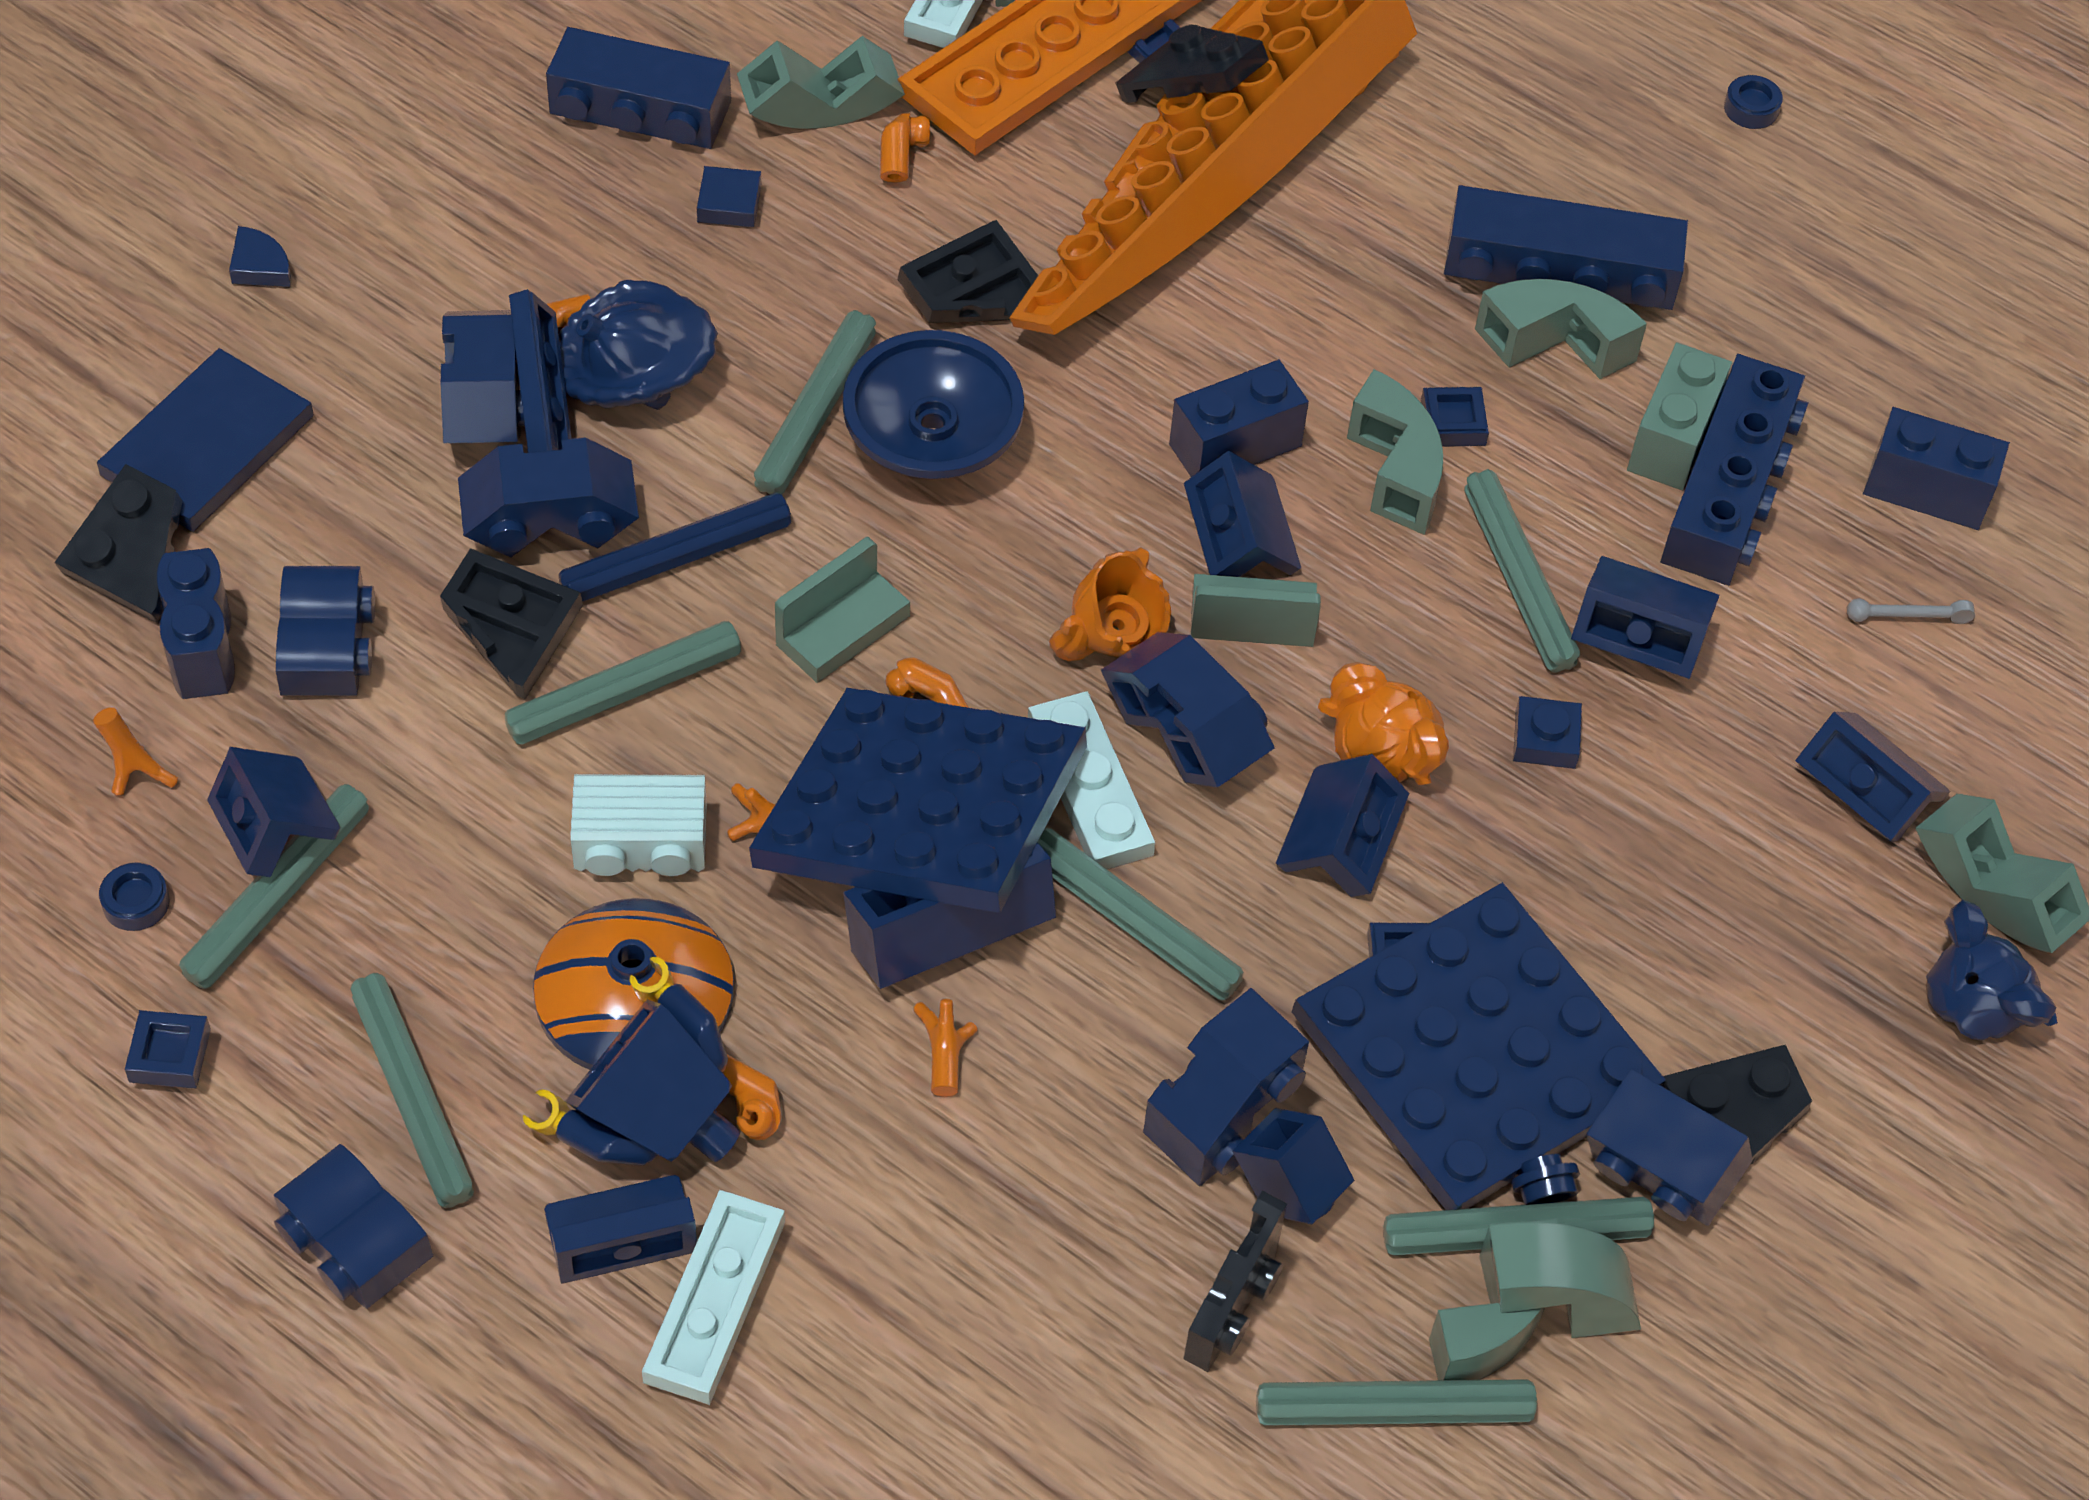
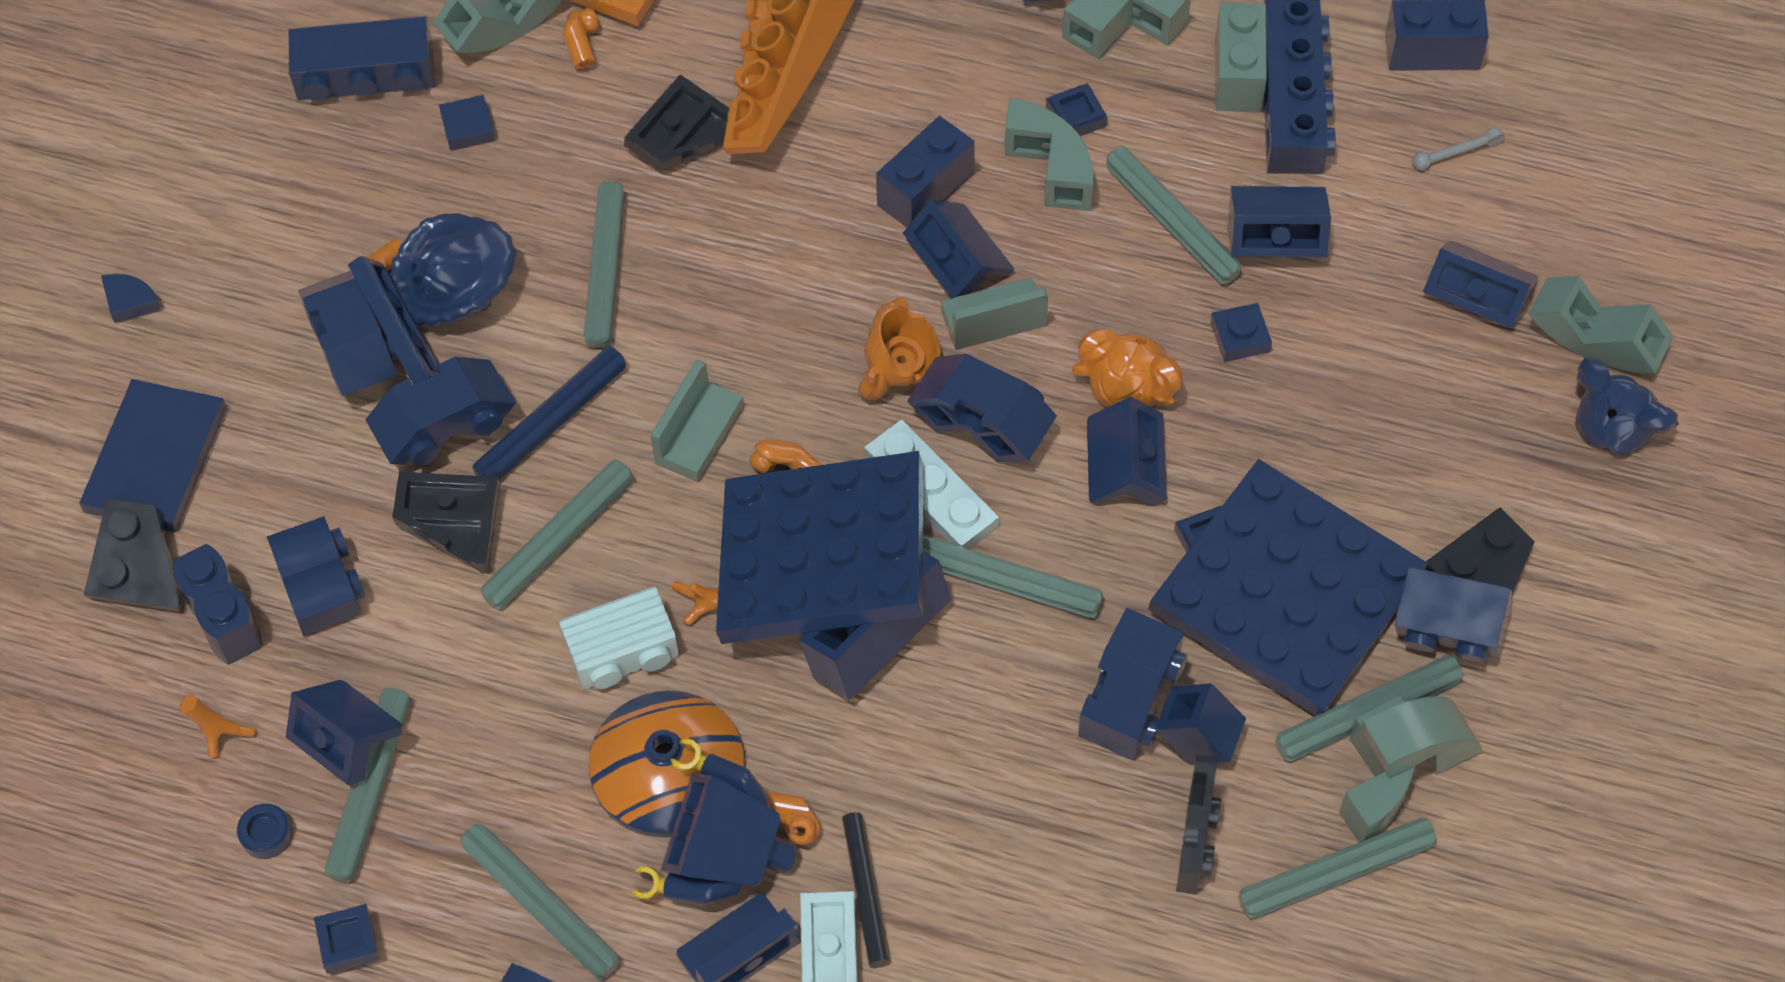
camera: 15 degrees left, 5 degrees up
(803, 1218) = (865, 890): none -> black bar
(939, 384) = (695, 218): dark blue dish -> none
(945, 1045) = (912, 723): orange bar -> none
(1546, 1180) = (1376, 668): dark blue plate -> none

